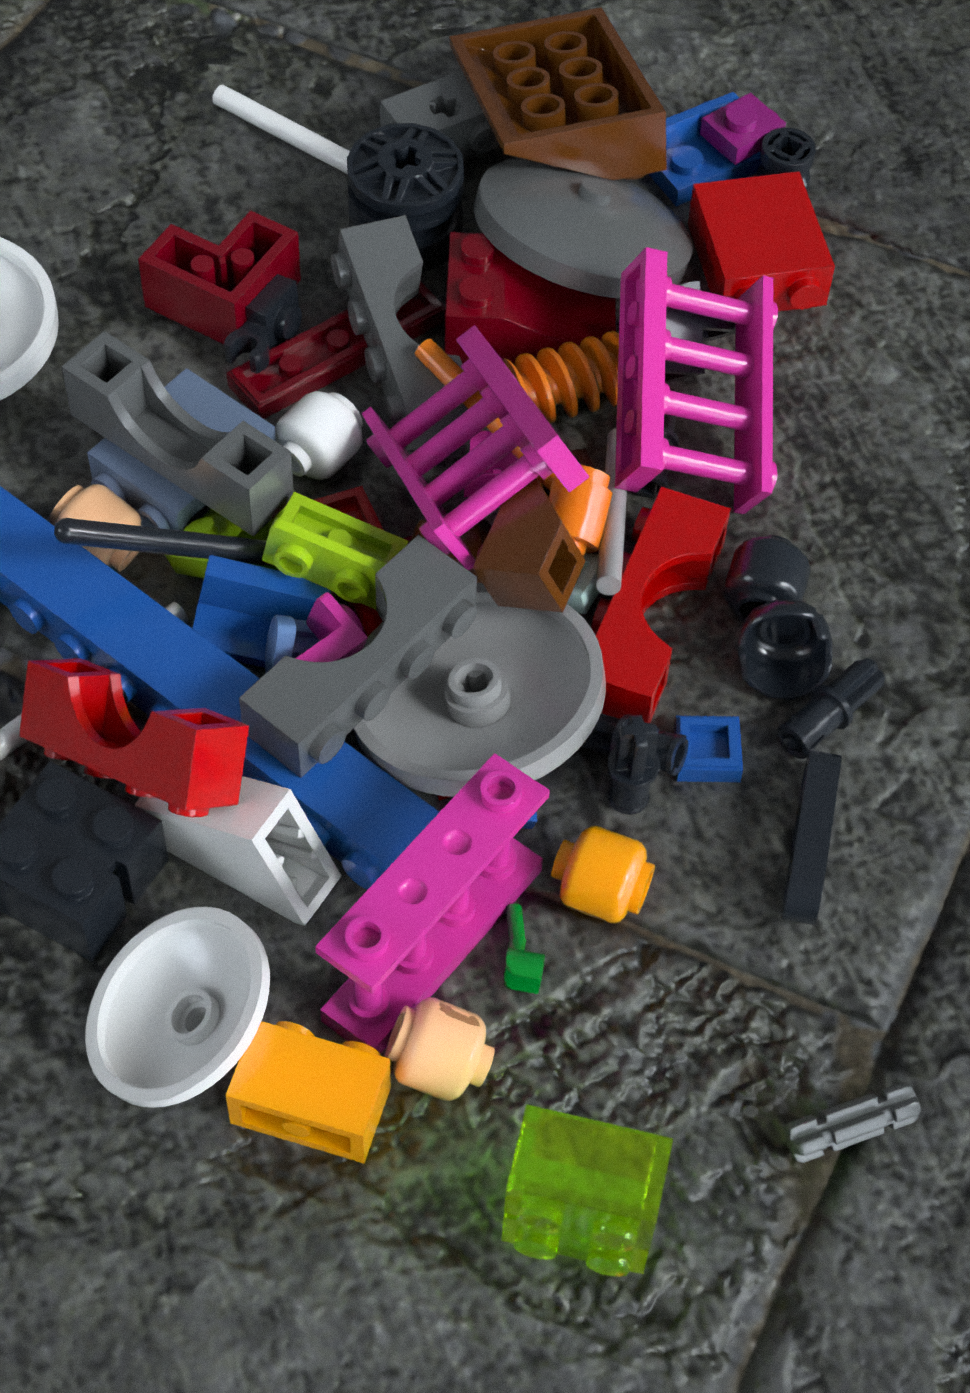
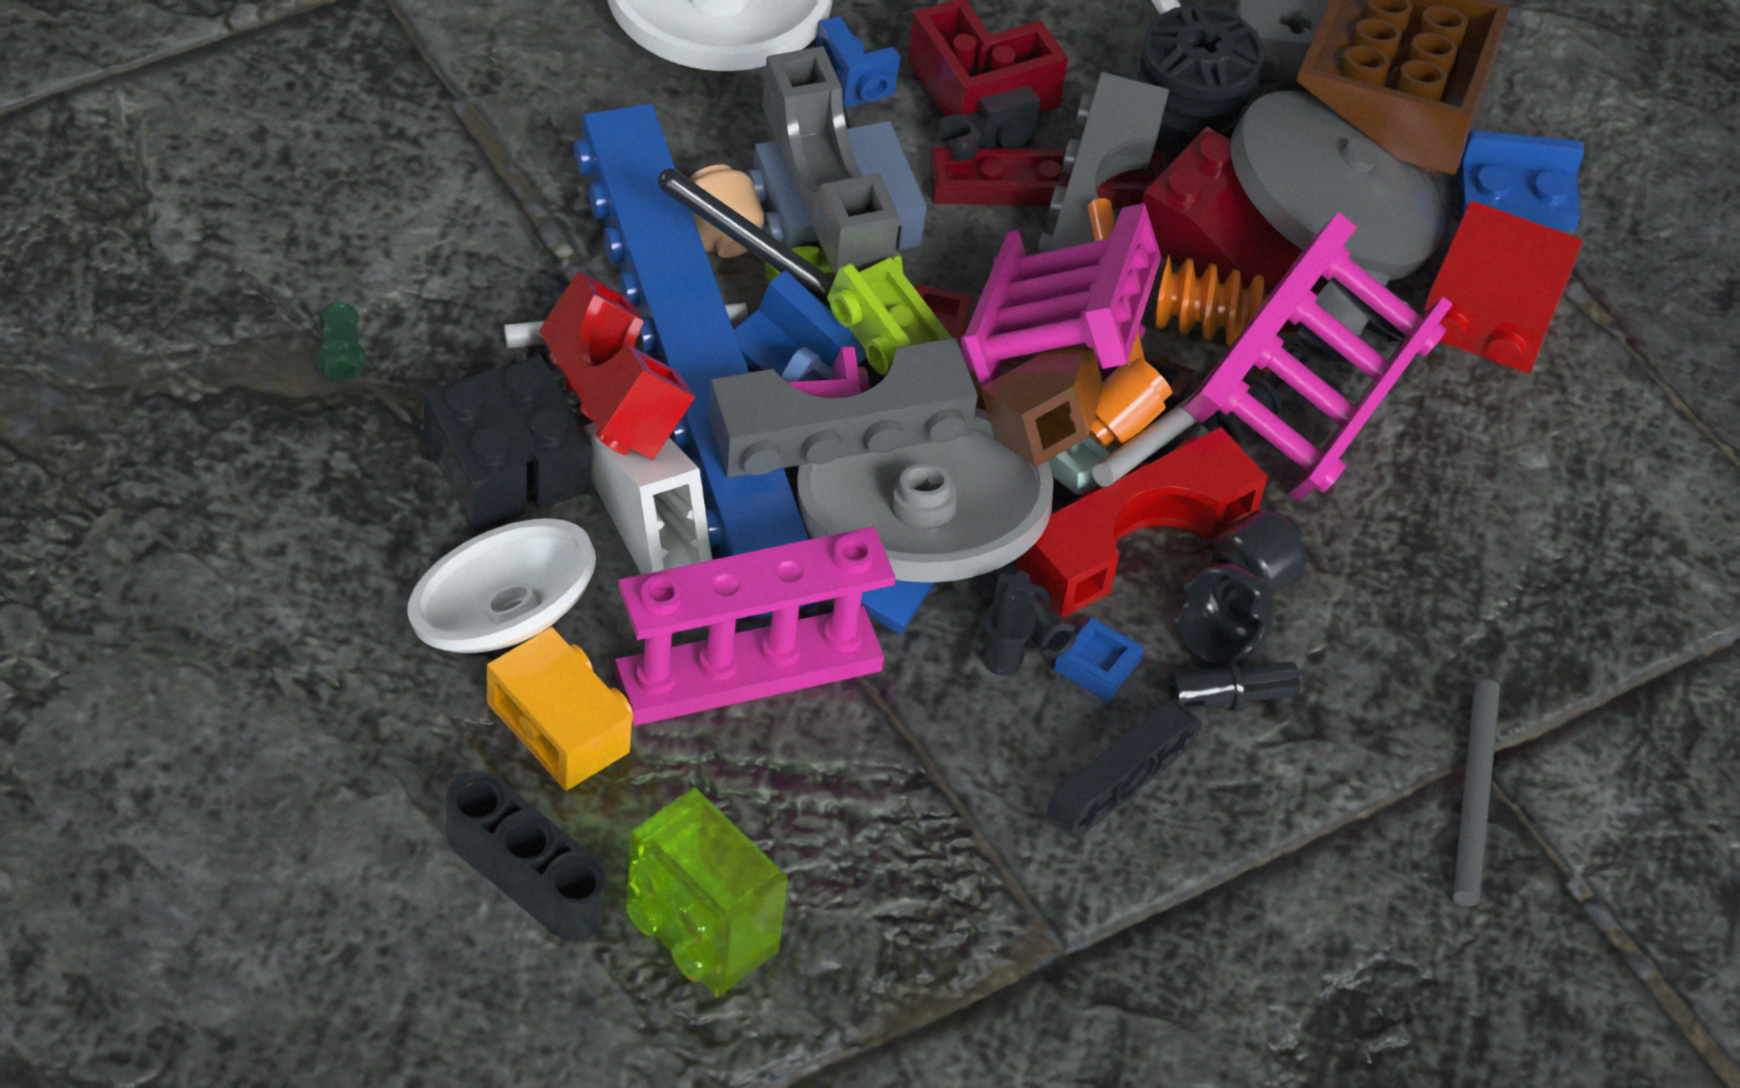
camera: 30 degrees right, 5 degrees down
(83, 323) = (860, 74): none -> blue bracket
(320, 433) = (963, 234): white head -> none
(364, 1231) = (536, 882): none -> black beam
(439, 1049) = (682, 738): light nougat head -> none
(523, 967) = (803, 726): green hand -> none
(603, 874) = (921, 694): light orange head -> none
(740, 127) = (1569, 181): magenta bracket -> none
(787, 151) = (1596, 222): black wheel -> none
(852, 1122) = (975, 992): dark grey axle -> none

